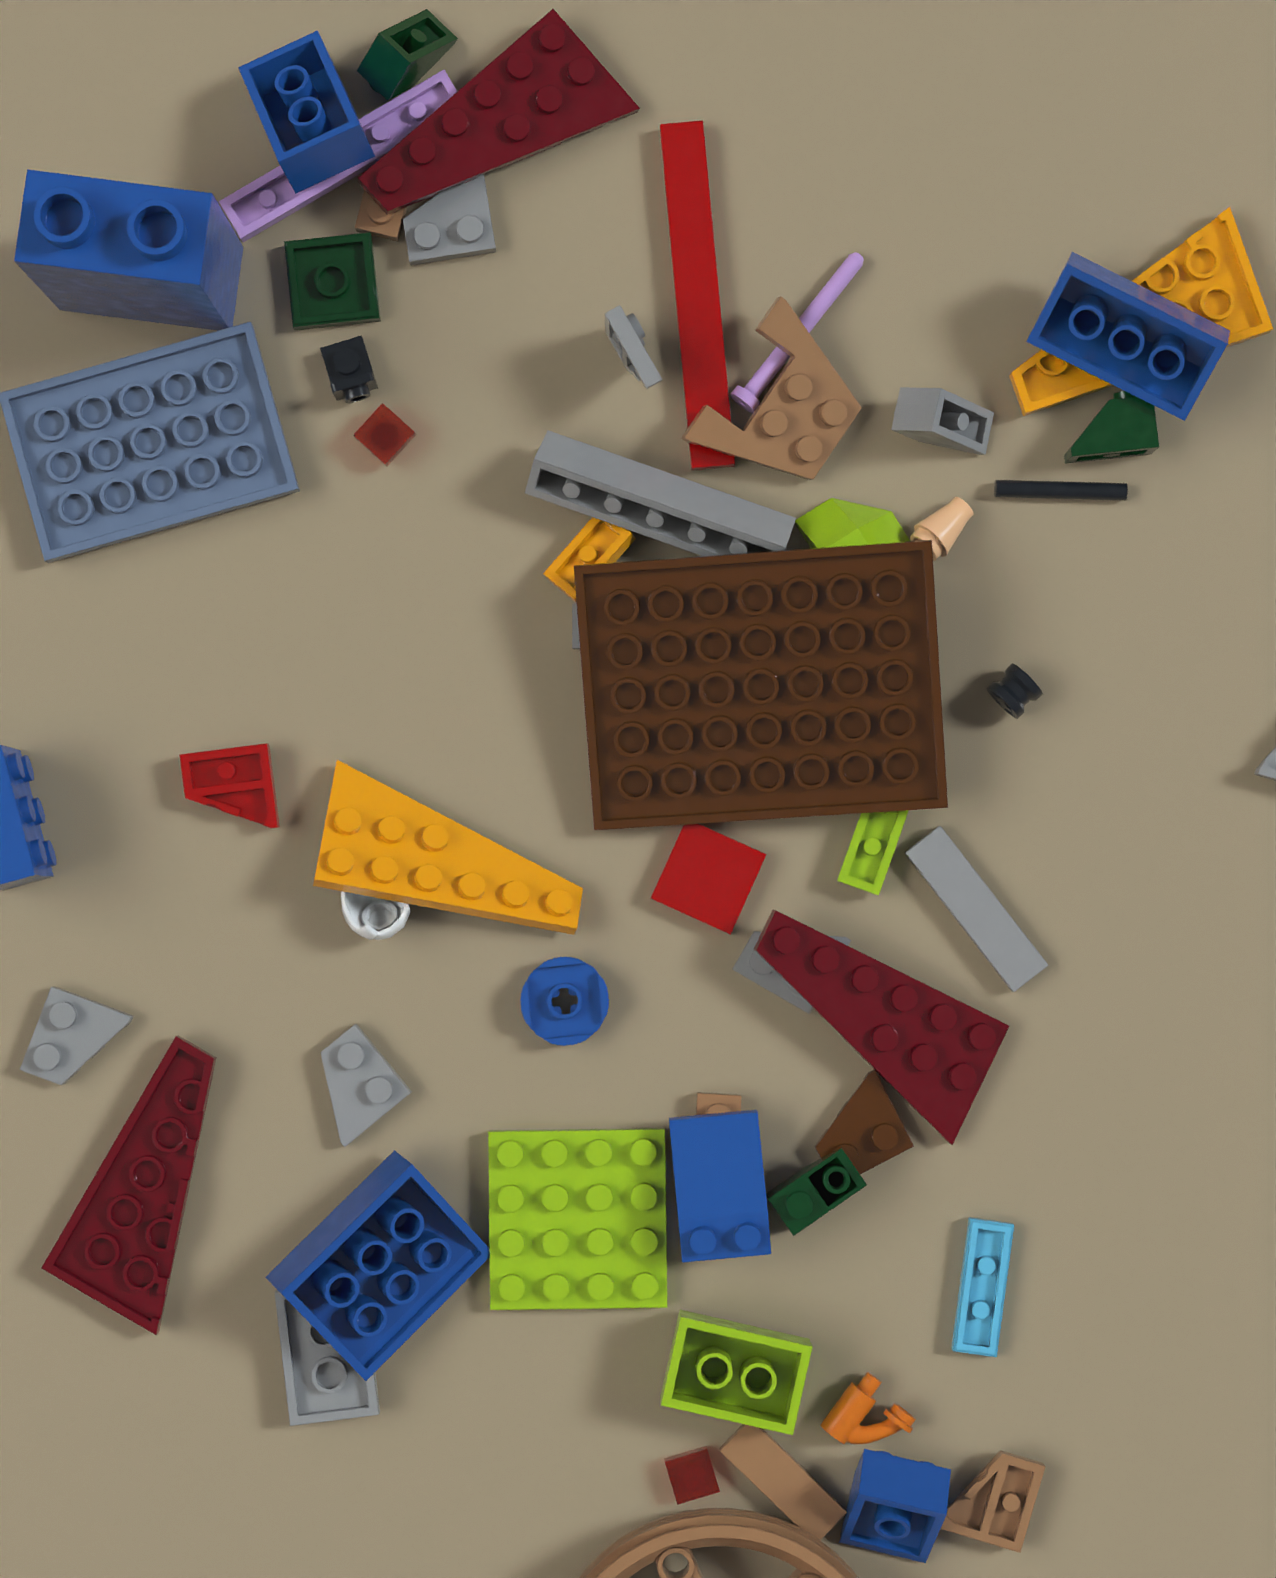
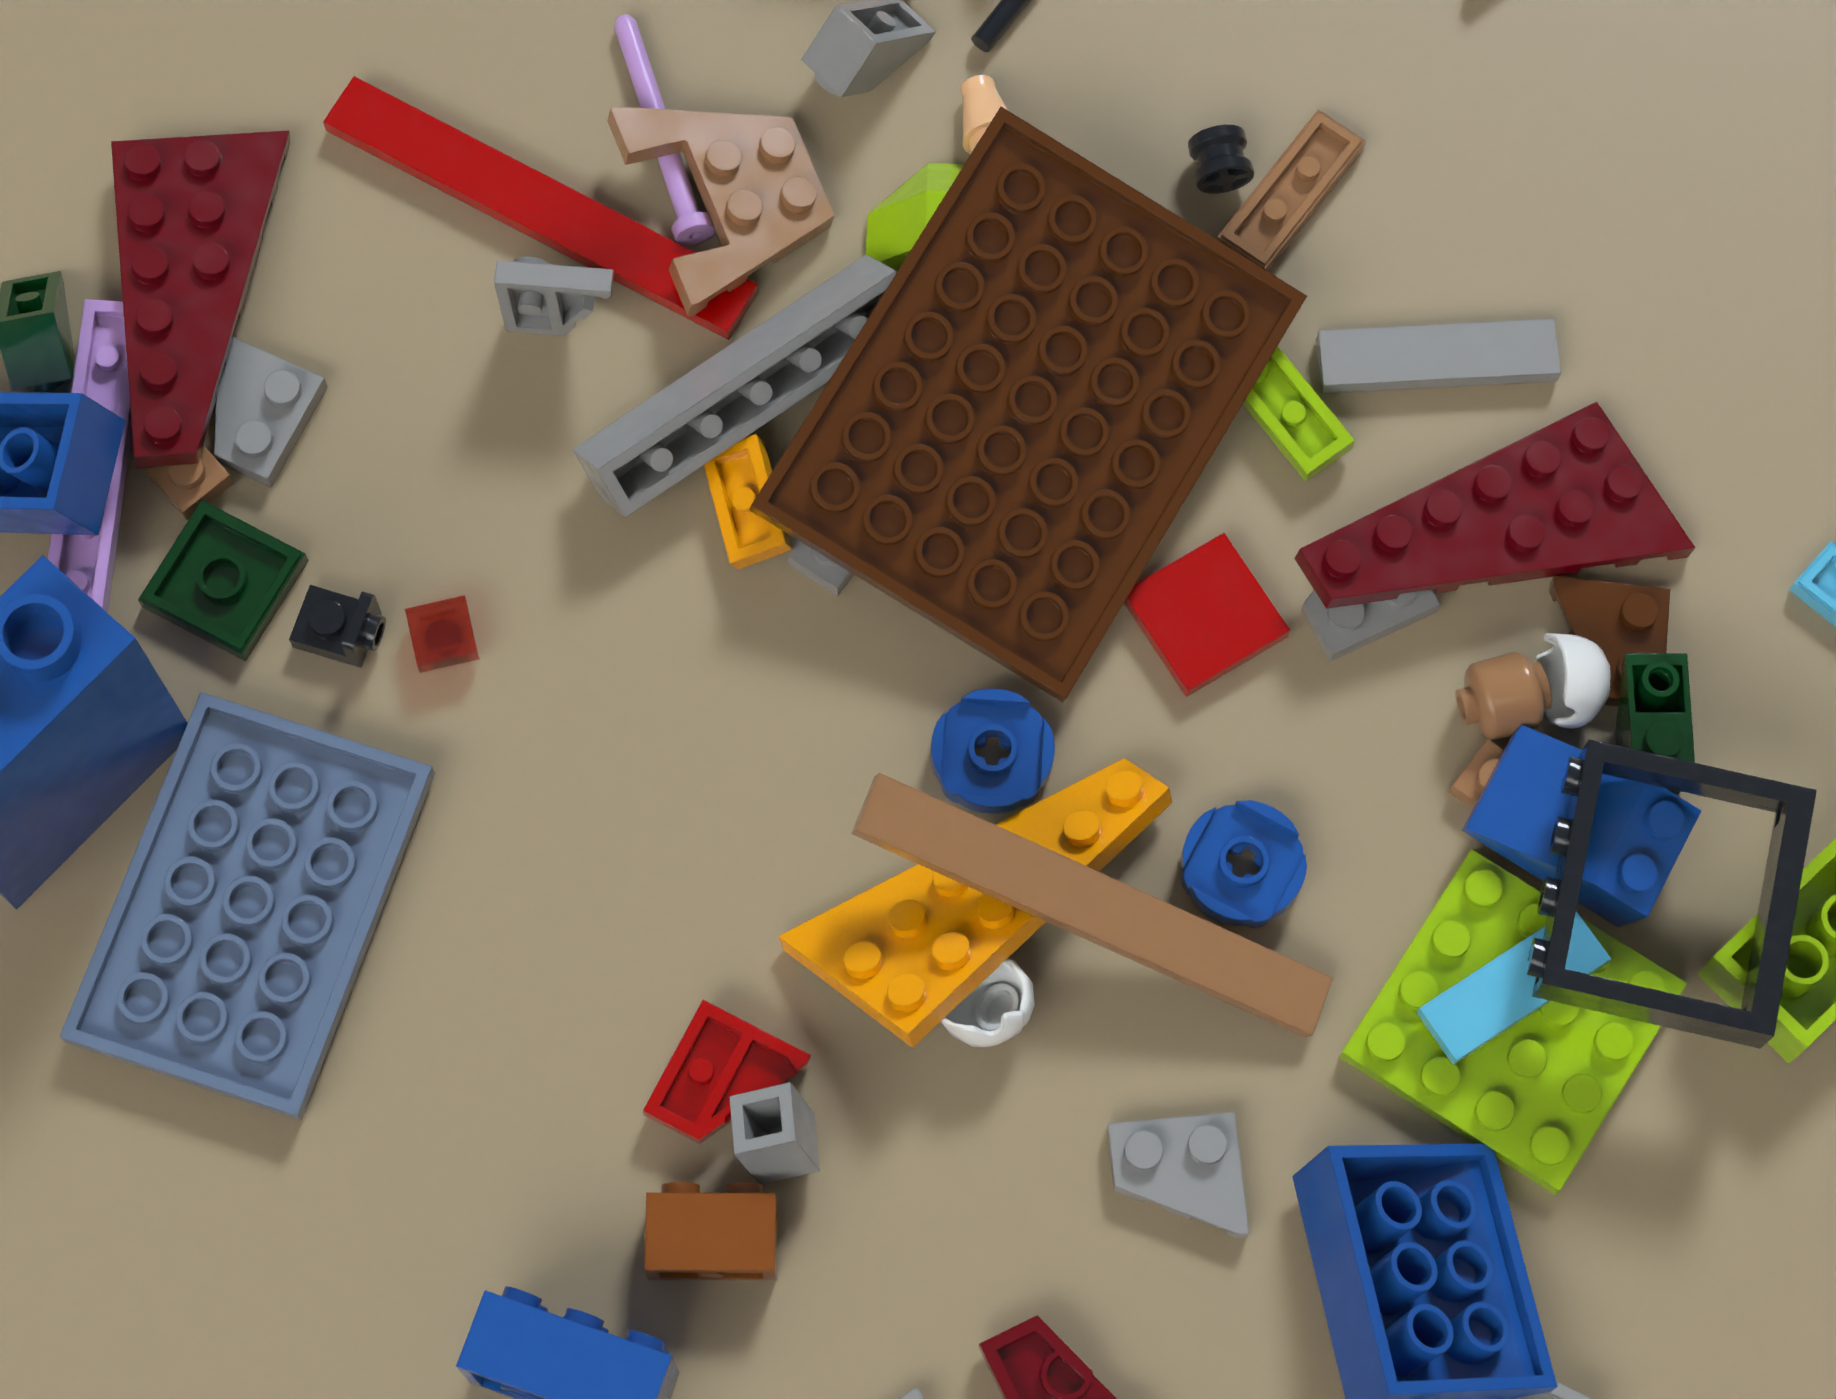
camera: 55 degrees left, 15 degrees down
(136, 842) = (711, 1233): none -> dark orange brick
(214, 839) = (774, 1133): none -> light grey brick
(467, 932) = (1092, 905): none -> medium nougat tile
(540, 783) = (992, 787): none -> blue plate
(590, 1208) = (1500, 994): none -> medium azure tile
(719, 1341) = (1558, 899): none -> black window
(772, 1089) = (1504, 694): none -> medium nougat head
(809, 1125) = (1577, 679): none -> white hair
(1025, 747) = (1292, 190): none -> medium nougat tile

